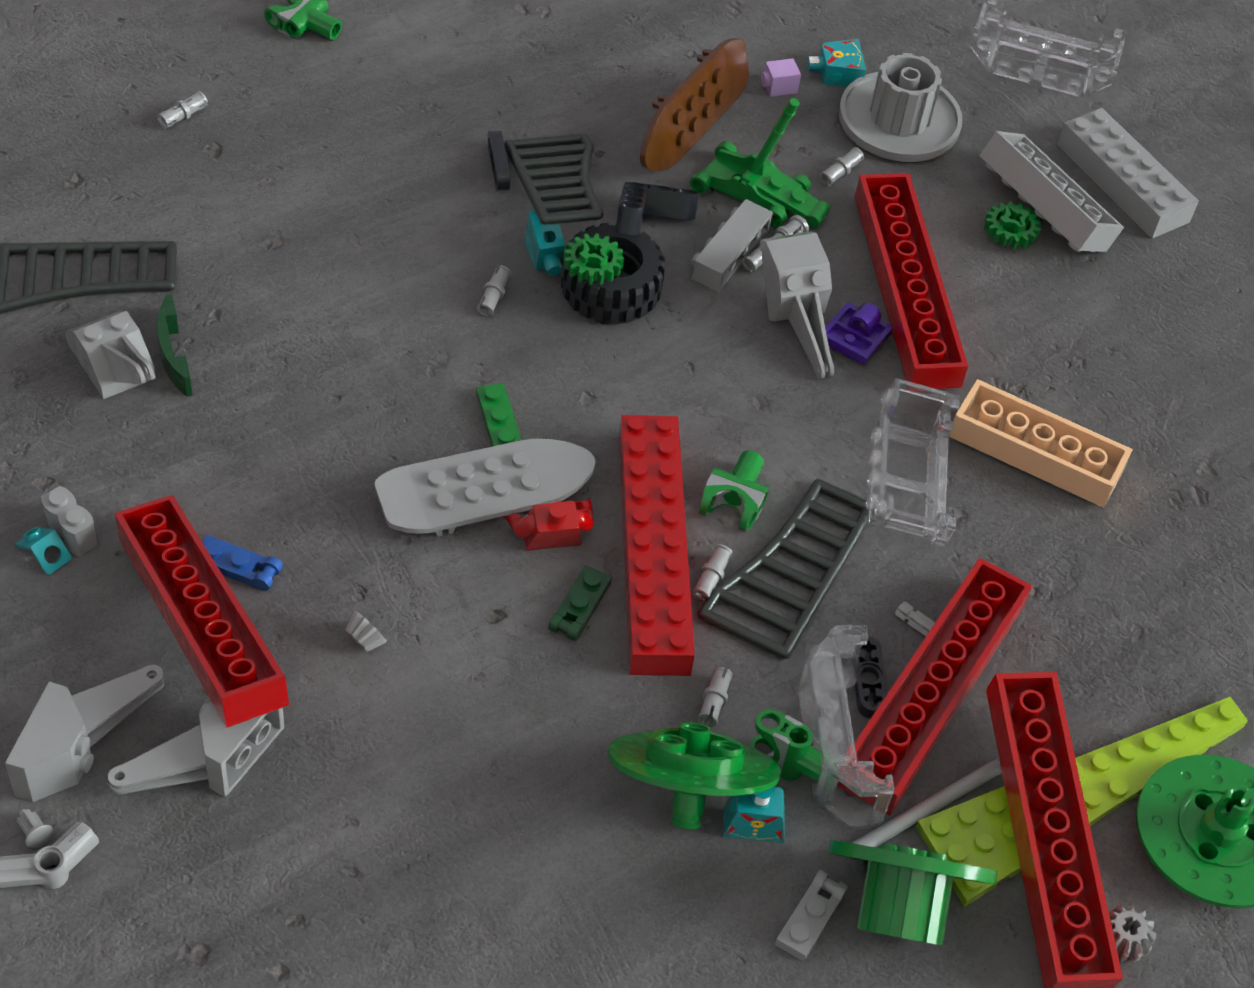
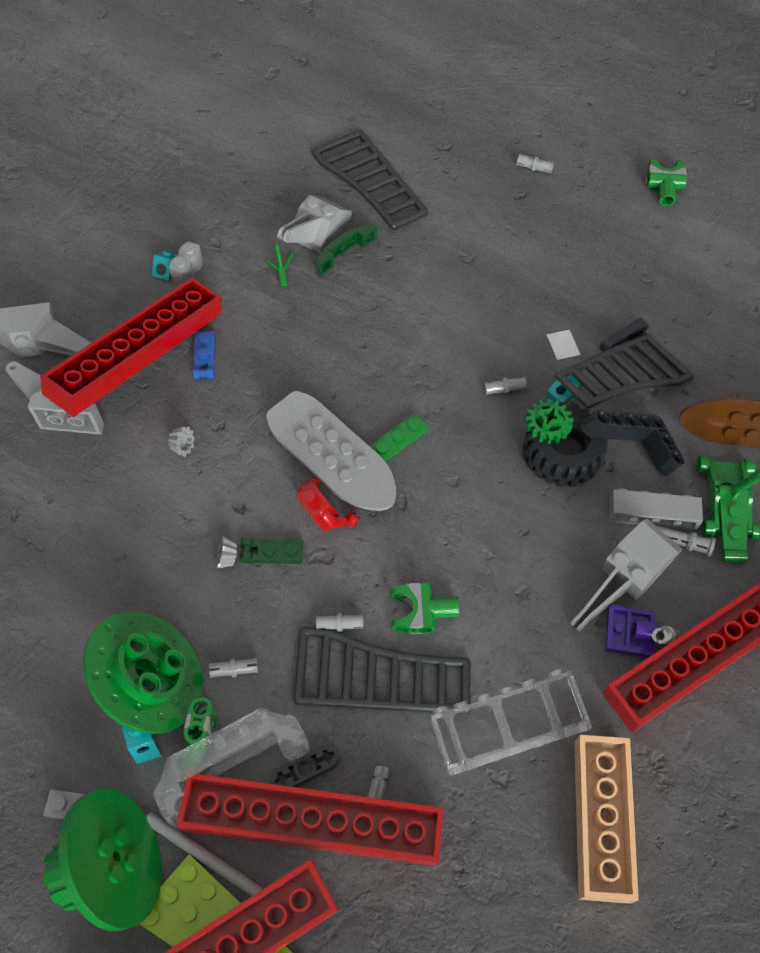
camera: 70 degrees right, 10 degrees up
(157, 426) = (281, 269): none -> green plant
(467, 218) = (563, 344): none -> white sticker
(560, 646) = (226, 553): none -> light grey piece
(655, 547) = (341, 573): red brick -> none
(883, 301) = (665, 634): none -> light grey pin

